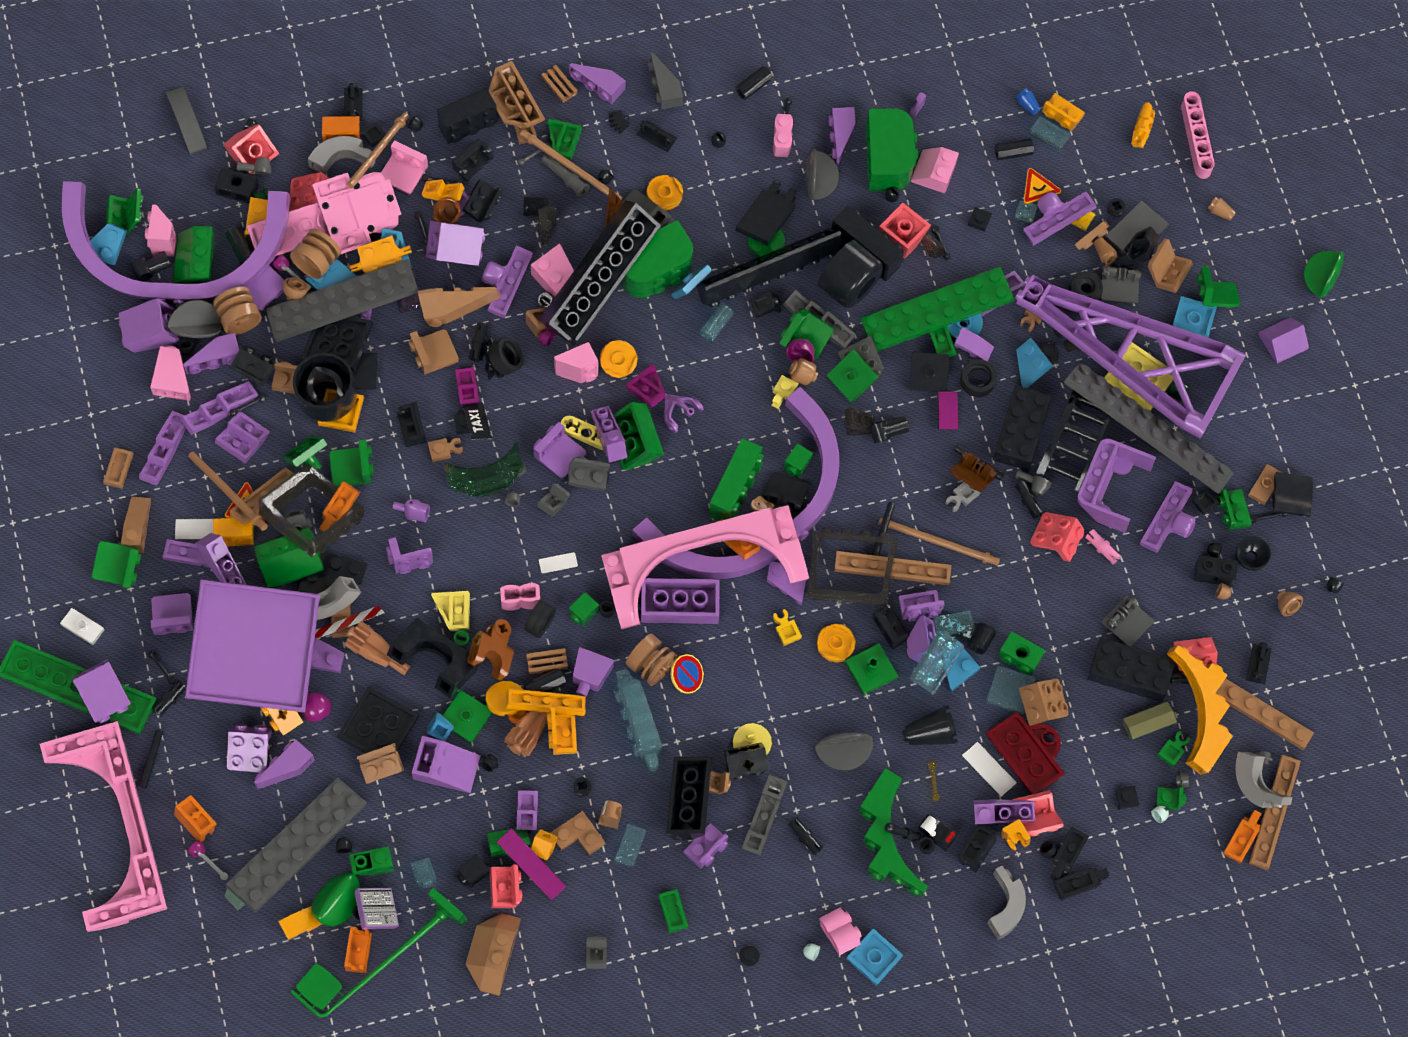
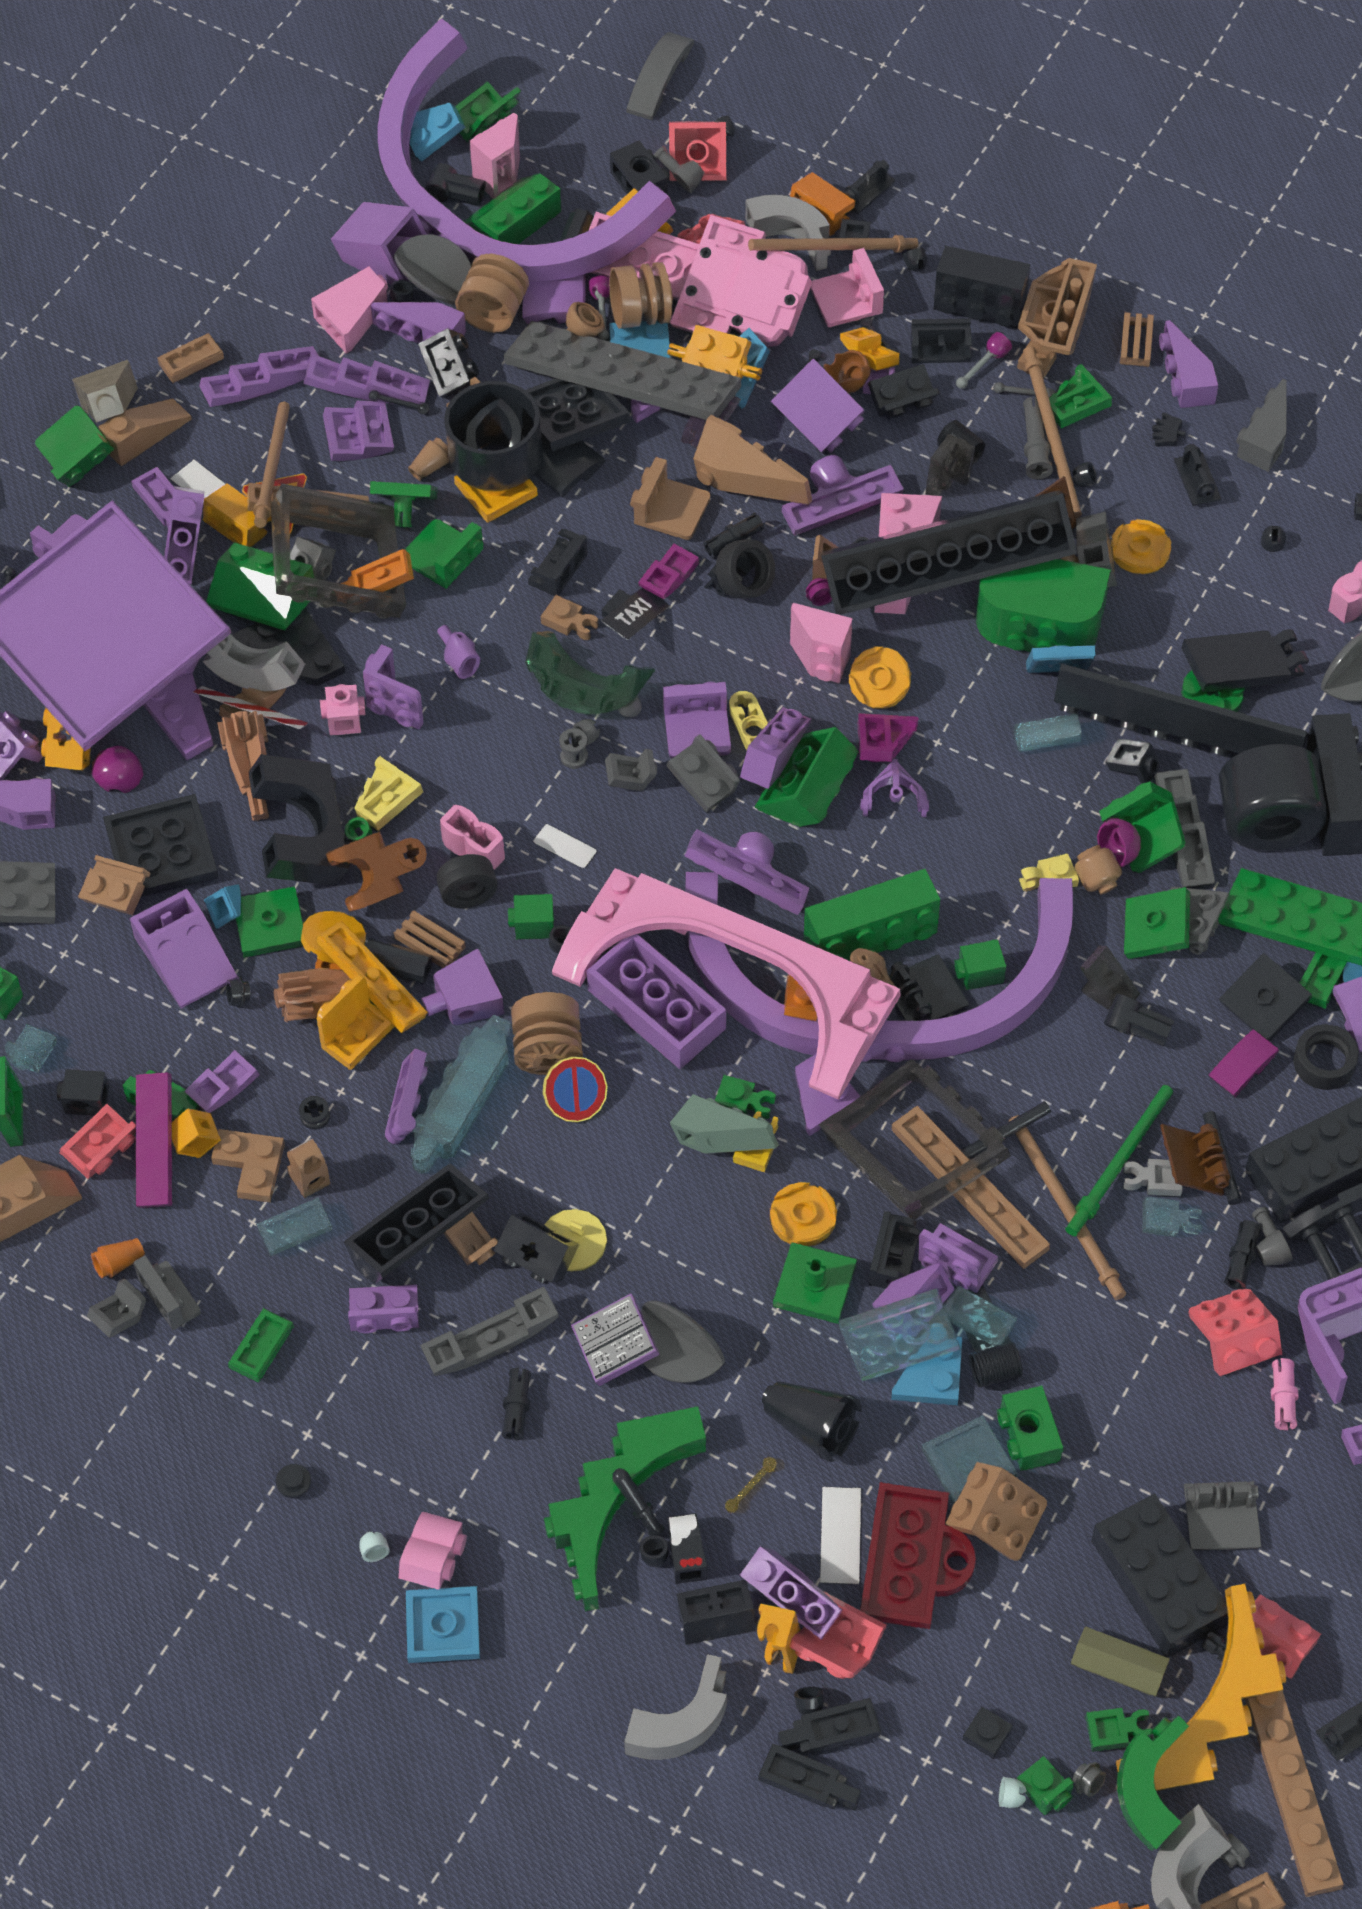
camera: 50 degrees right, 10 degrees down
(101, 522) = (106, 390): none -> dark tan slope
(294, 422) = (431, 458): none -> medium nougat cone
(392, 585) = (342, 709): none -> bright pink brick
(500, 140) = (996, 347): none -> hinge
(513, 508) = (577, 746): none -> dark grey bush
(568, 931) = (115, 1257): none -> orange cone
(609, 925) = (167, 1292): none -> dark grey bracket
(617, 743) = (406, 1098): none -> medium lavender plate
(657, 503) = (749, 867): none -> medium lavender plate
(756, 614) = (742, 1095): none -> green plate
(765, 638) = (718, 1129): none -> sand green slope
(819, 770) = (615, 1339): none -> light grey tile
(950, 533) = (1089, 1204): none -> green bar
(984, 510) = (1165, 1218): none -> clear light blue plate
(1208, 762) = (1135, 1783): none -> green arch

